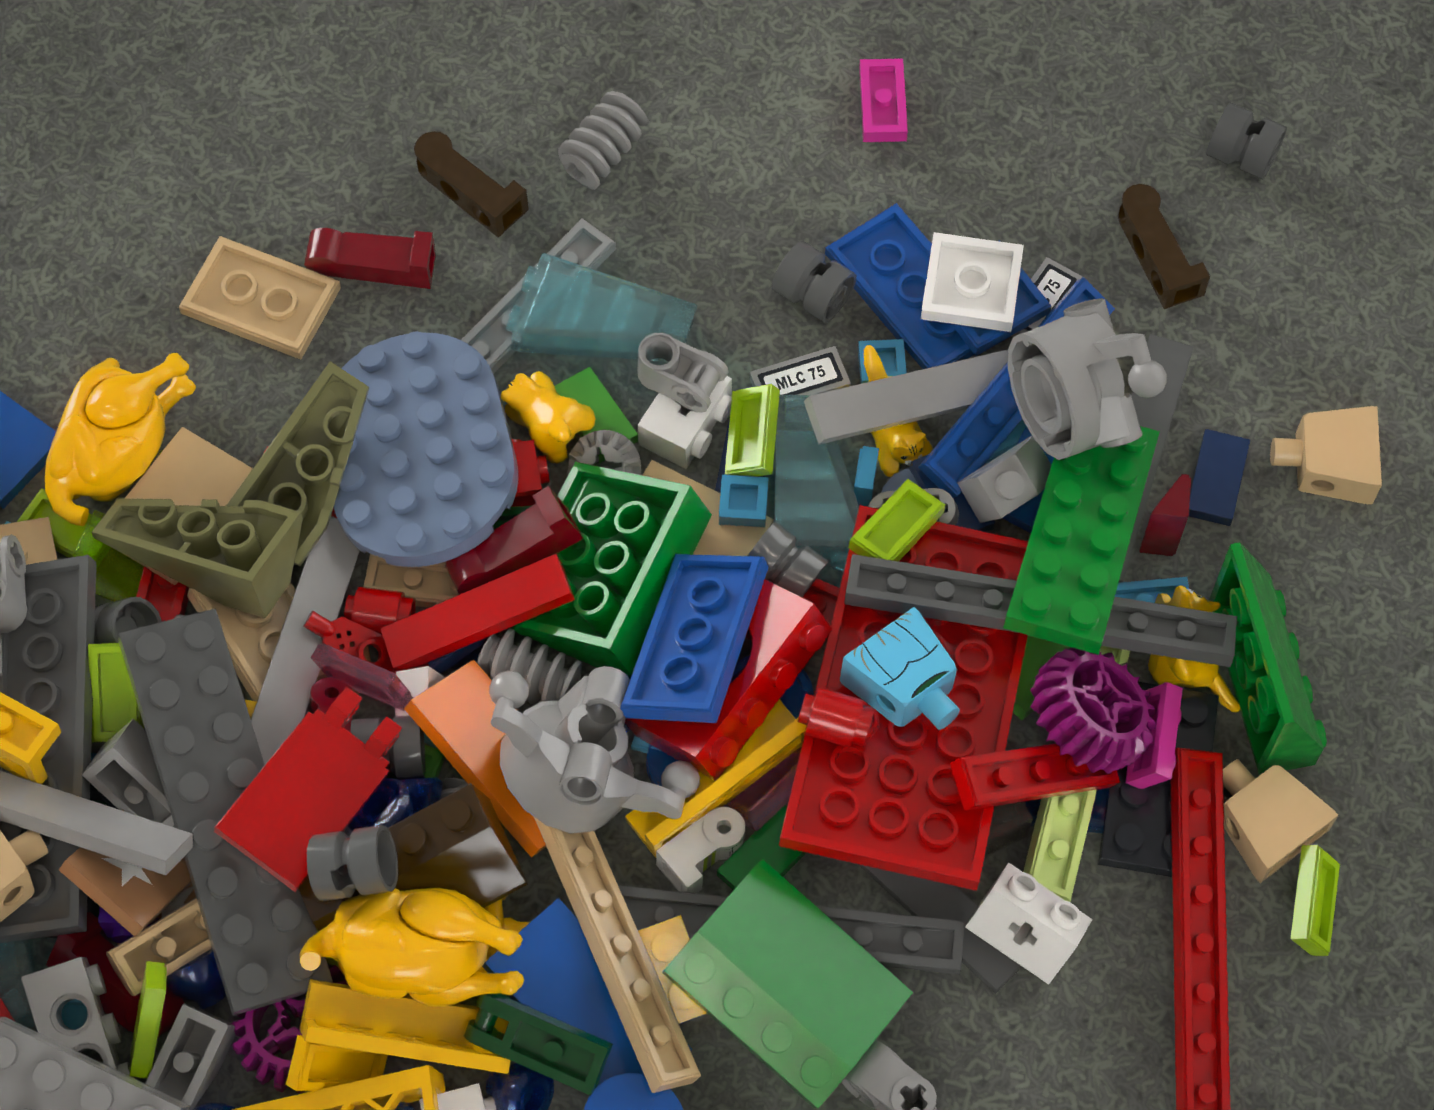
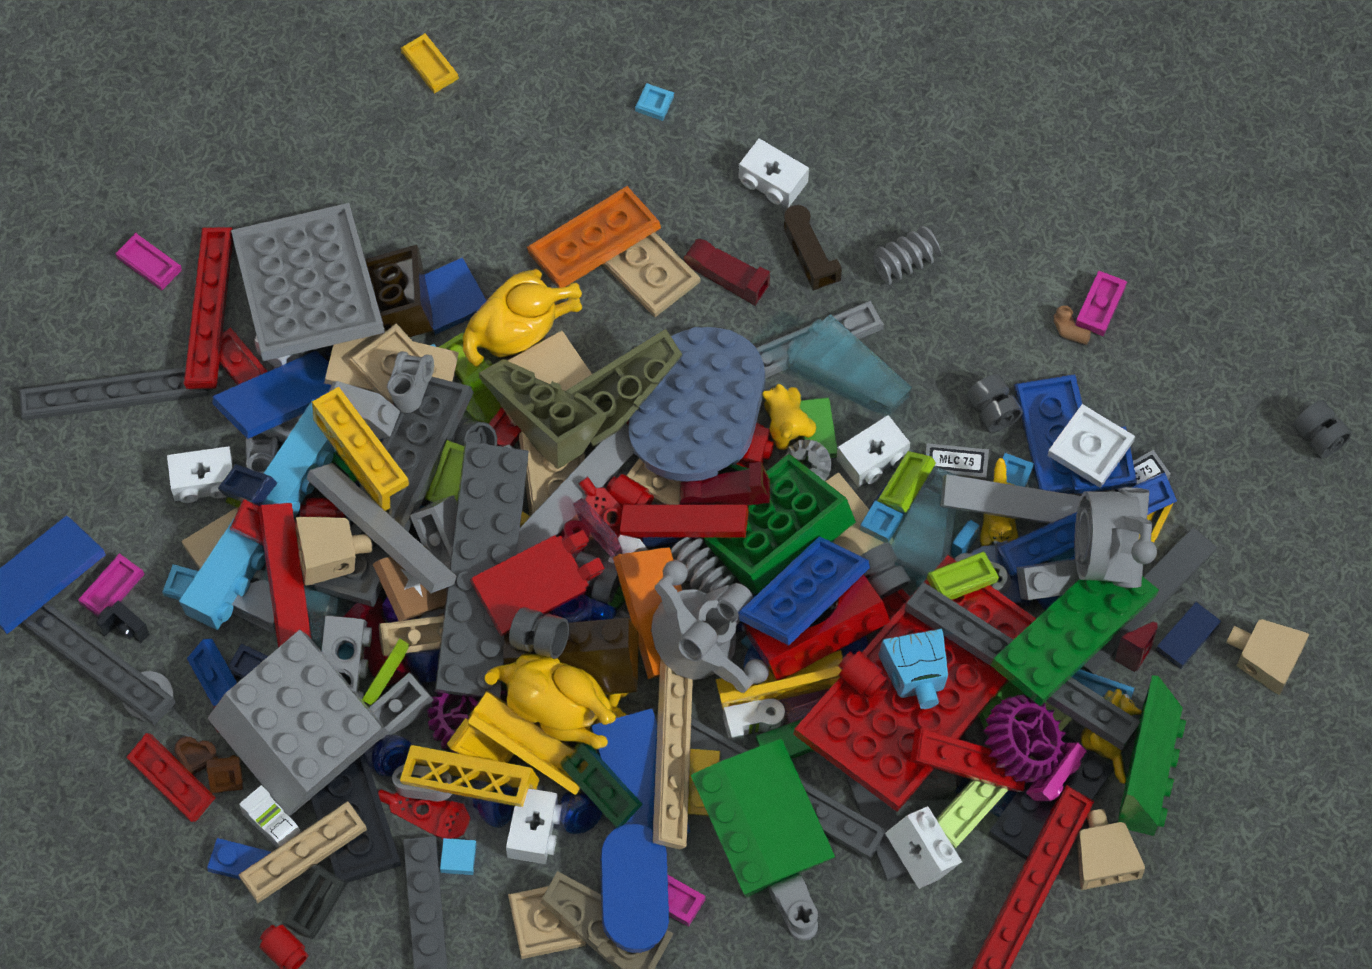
camera: 25 degrees right, 0 degrees up
(167, 287) = (593, 237): none -> orange tile
(168, 80) = (654, 102): none -> medium azure tile
(373, 106) = (773, 173): none -> white brick
(684, 375) = (880, 430): light grey piece -> none
(854, 148) = (1066, 326): none -> medium nougat arm
(1158, 249) = (1226, 474): dark brown leg -> none
(1315, 900) = (1106, 913): lime tile -> none

